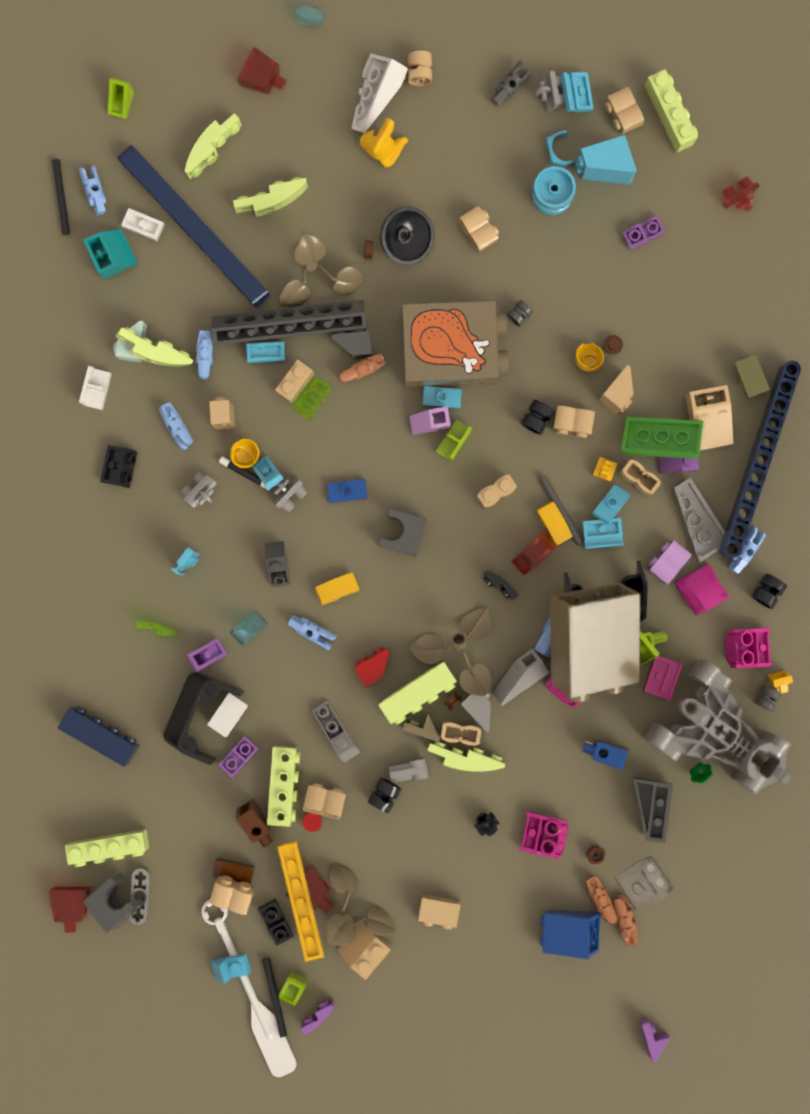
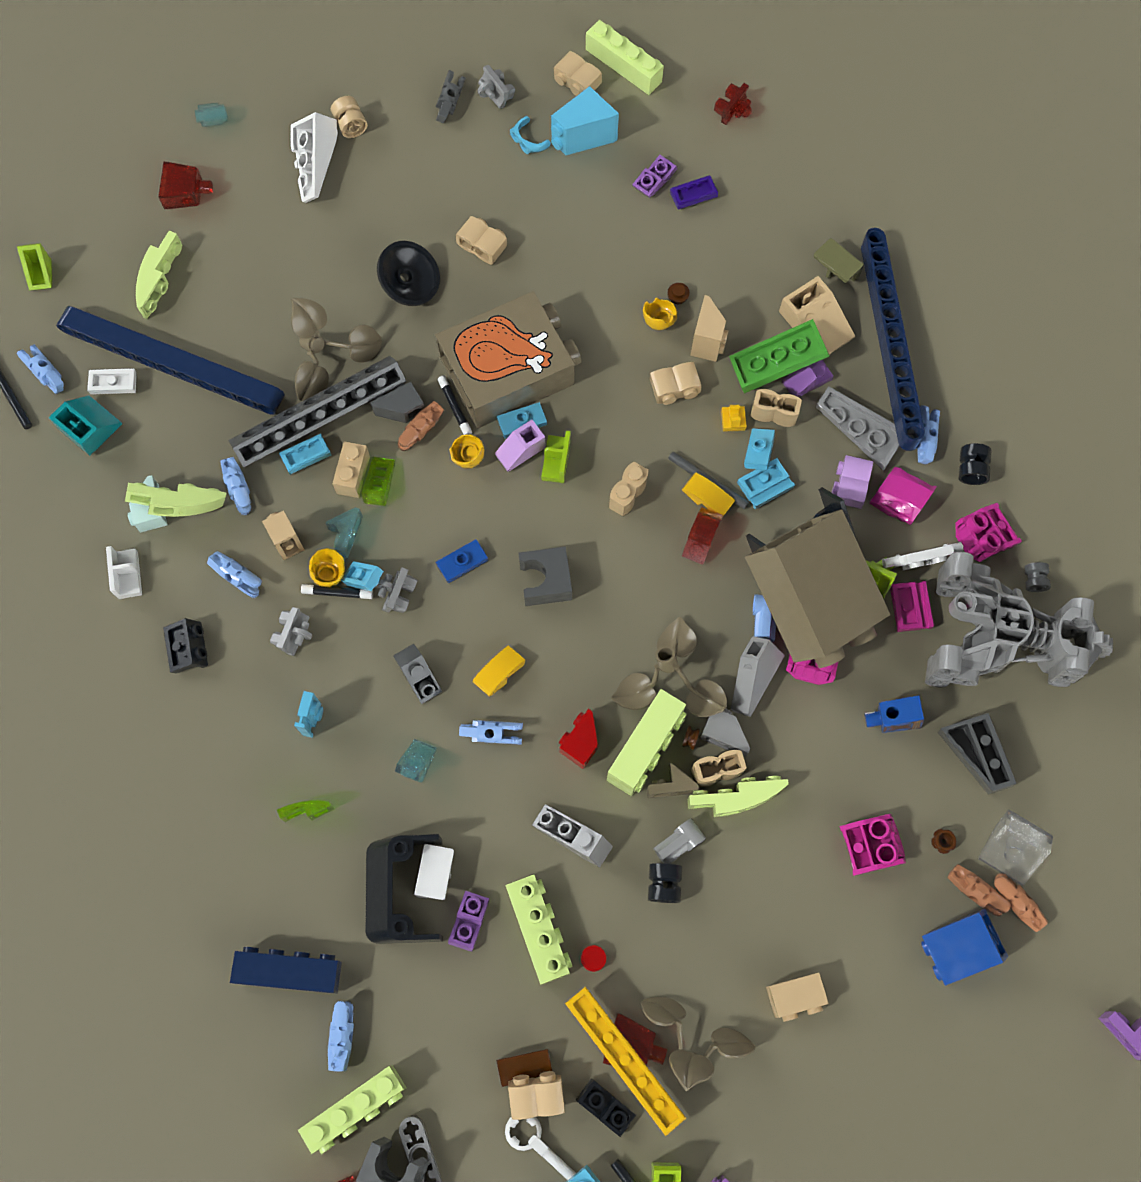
camera: 25 degrees left, 15 degrees down
(118, 795) = (340, 1036): none -> light blue hinge
(206, 655) = (379, 813): medium lavender slope -> none
(253, 823) = (516, 984): reddish brown torso -> none
(274, 426) = (347, 525): none -> clear light blue slope
(280, 195) = (251, 295): yellowish green slope -> none
(324, 801) = (597, 925): tan brick -> none
(365, 951) = (731, 1089): tan slope -> none
(368, 250) = (373, 306): reddish brown tile -> none
(383, 146) = (341, 199): yellow hair -> none
(388, 406) = (467, 451): none -> yellow hair
(396, 361) = (458, 413): none -> black bar
(486, 824) = (801, 862): black gear -> none
(494, 580) = (672, 583): black slope -> none
(519, 313) = (565, 300): dark grey wheel -> none
(537, 416) = (634, 394): black wheel -> none
(554, 179) = (542, 172): medium azure wheel -> none
(577, 92) = (521, 77): medium azure plate -> none
(668, 261) = (694, 192): none -> dark purple plate
(684, 645) = (917, 559): none -> white plate
(701, 773) = (1011, 691): green plant -> none
(780, 680) = (1040, 552): yellow tile -> none

